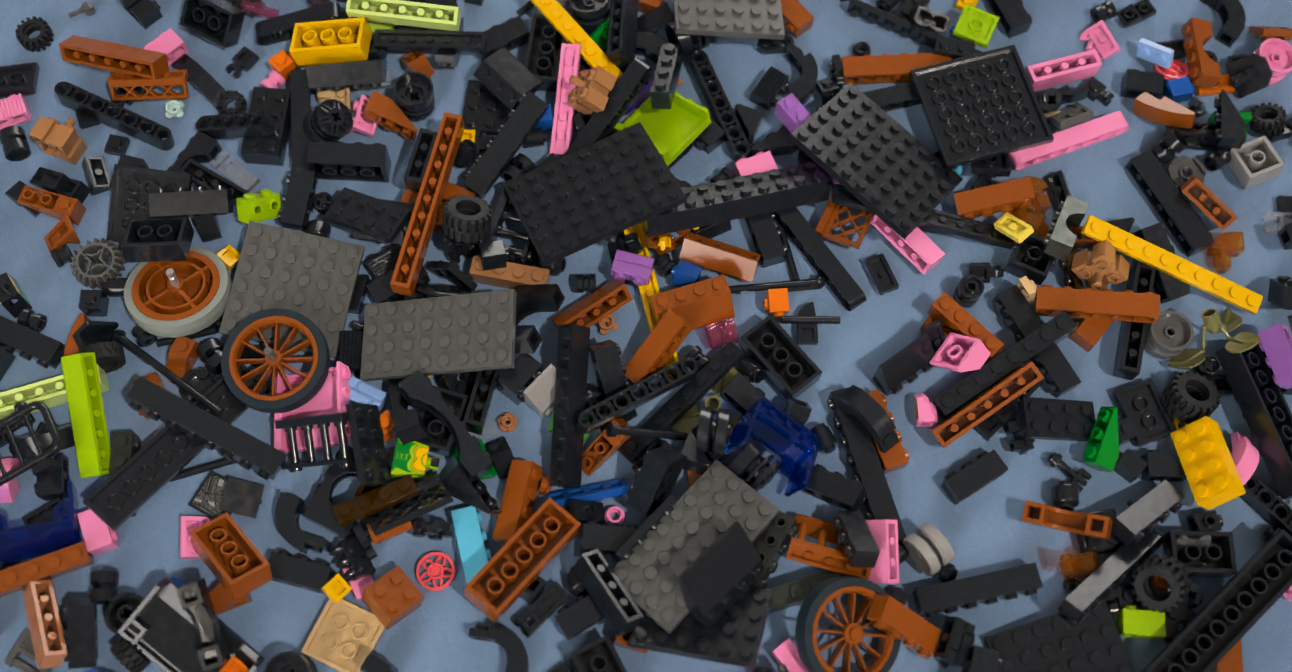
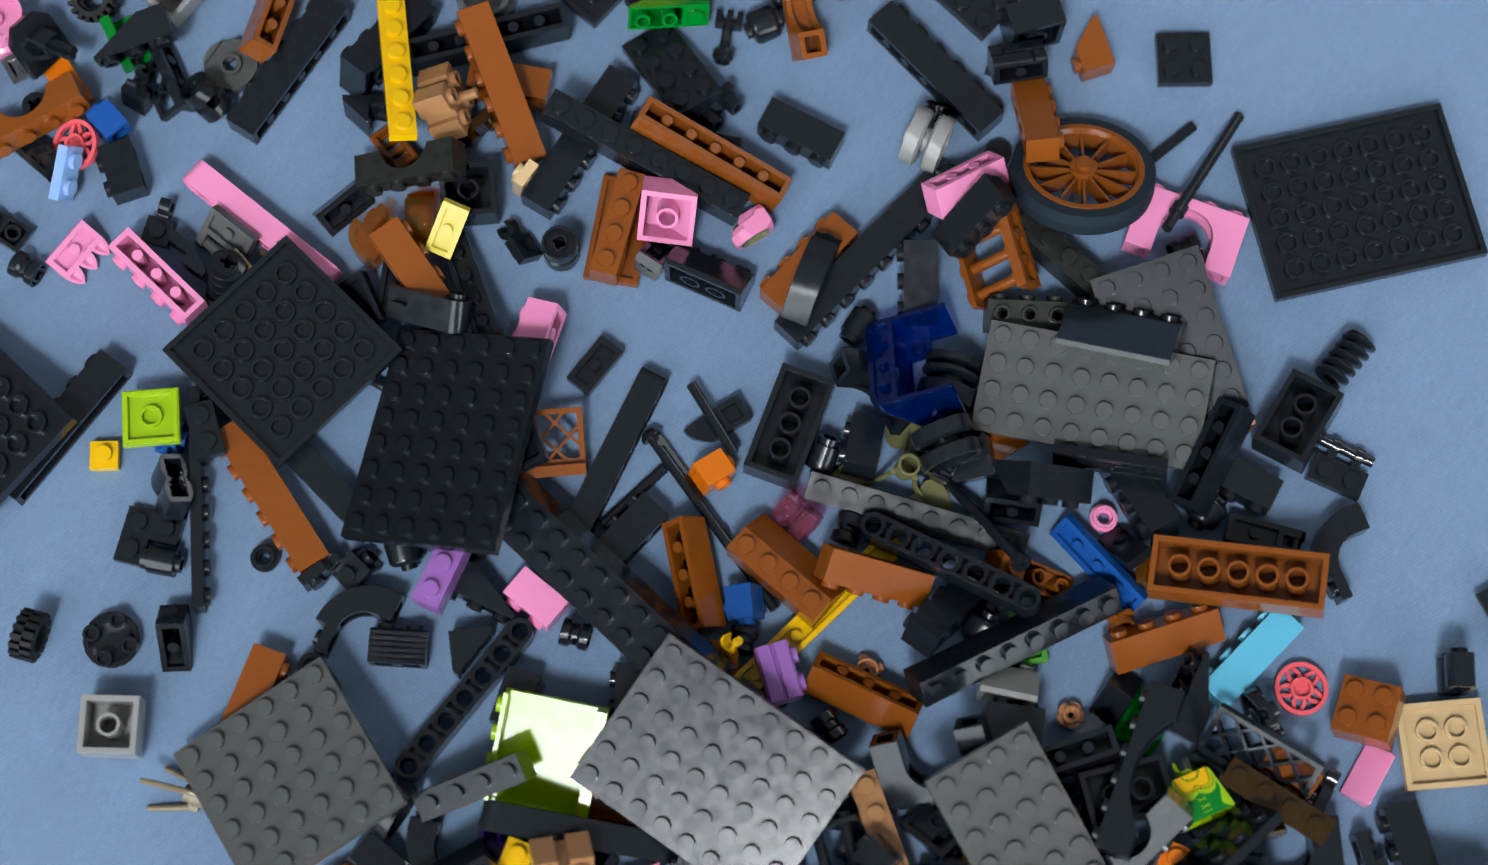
camera: 120 degrees left, 5 degrees up
(336, 588) = (1402, 784): yellow plate -> none
(353, 558) = (1353, 793): black plate -> none
(958, 198) = (442, 313): none -> black door
(1163, 111) = (157, 125): dark orange slope -> none
(1215, 160) = (189, 36): black wheel -> none

